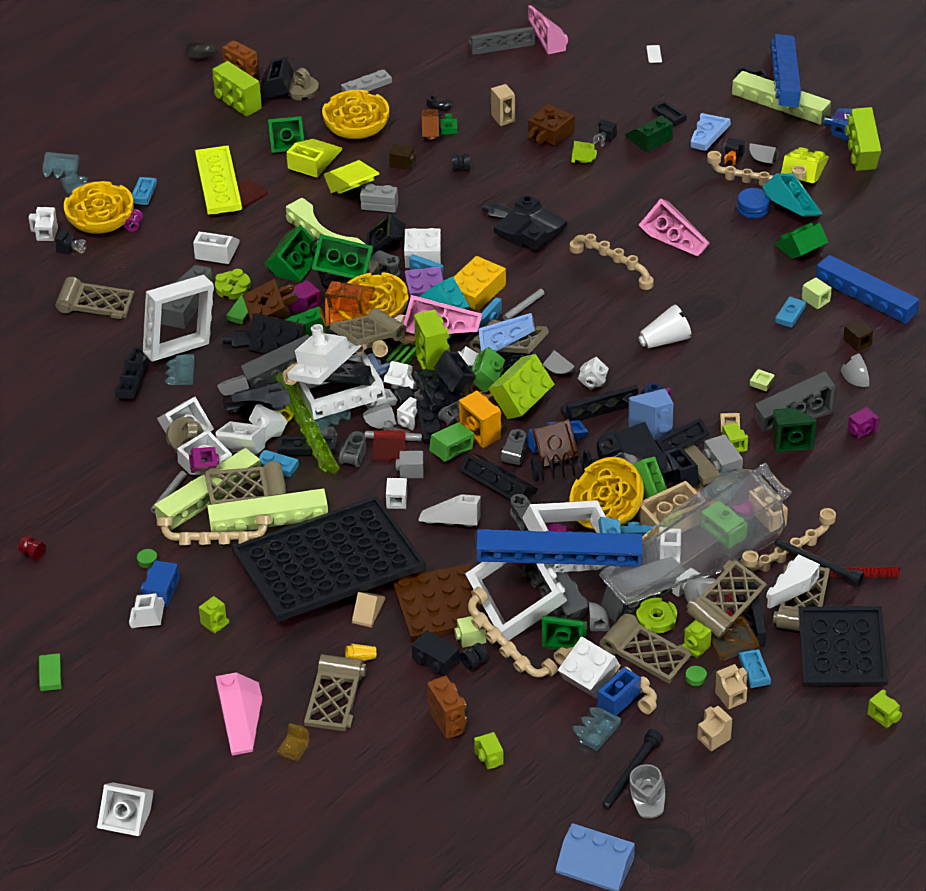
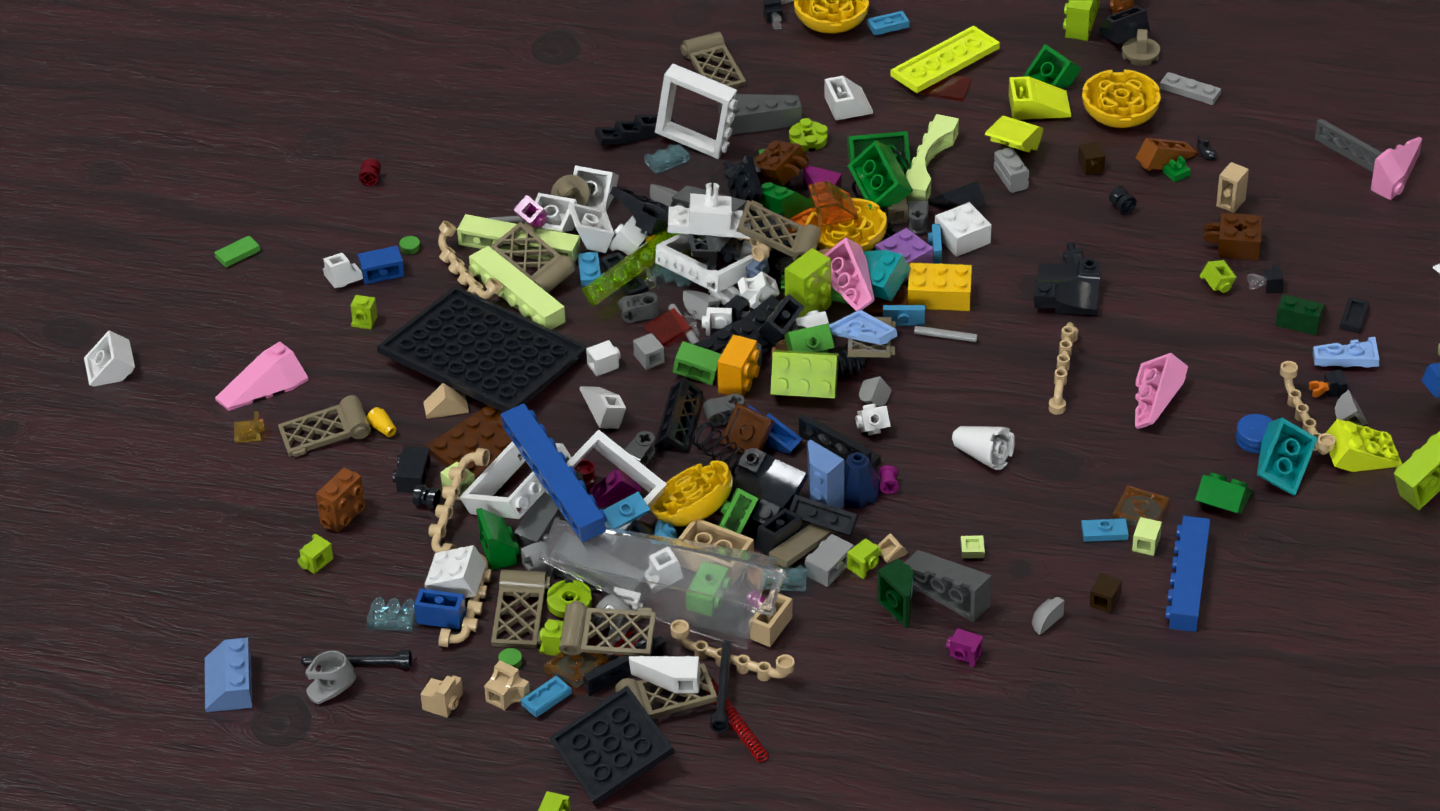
camera: 60 degrees right, 0 degrees up
(134, 220) = (840, 35): magenta bush -> none
(780, 286) = (1140, 503): none -> clear orange tile

